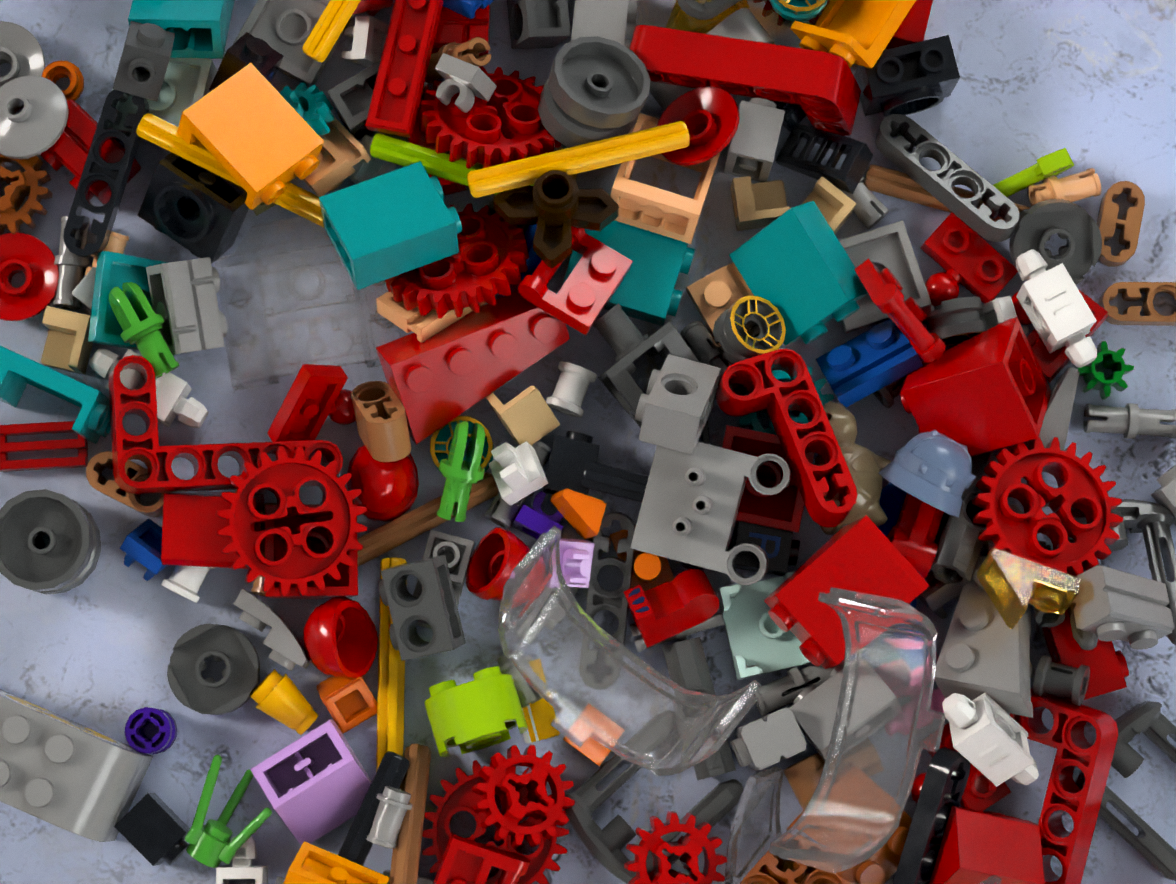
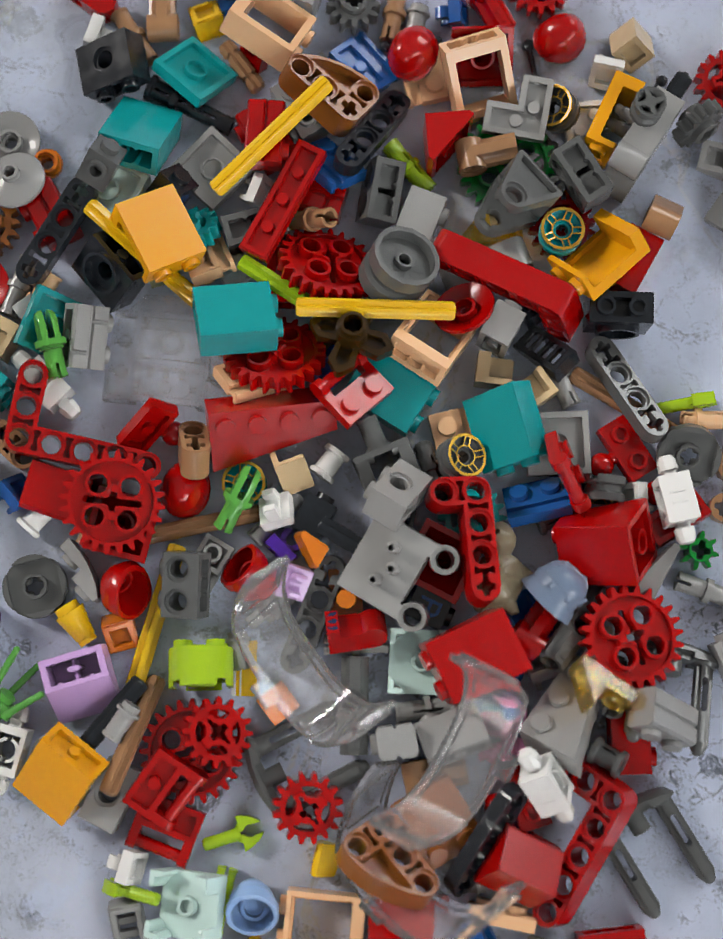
camera: 20 degrees right, 0 degrees up
(462, 78) = (313, 234): light grey tile -> none

